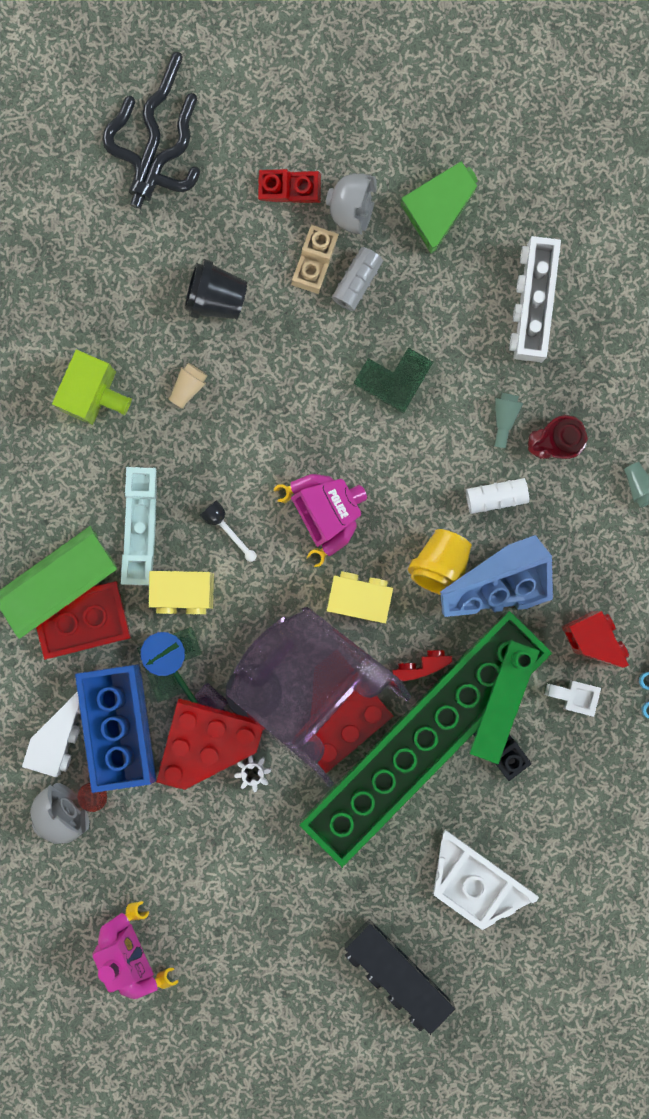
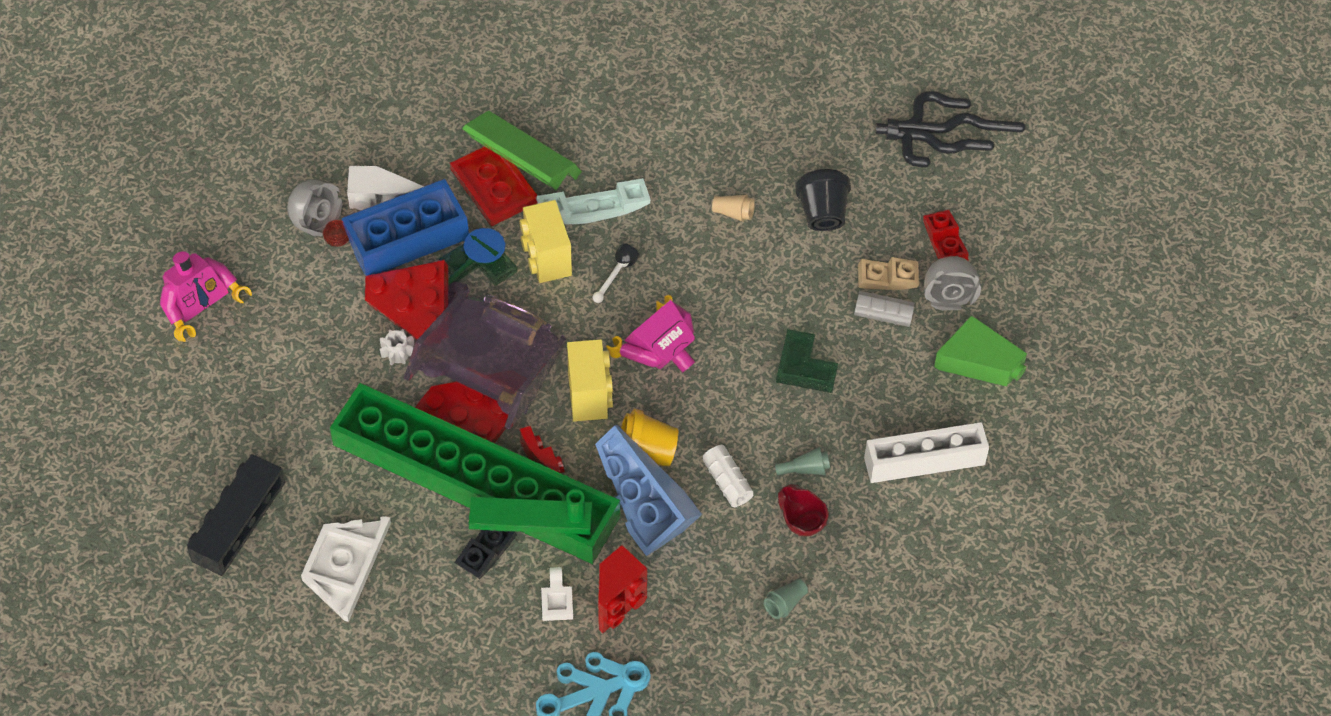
camera: 70 degrees right, 30 degrees down
(87, 389) = (700, 127): lime brick -> none

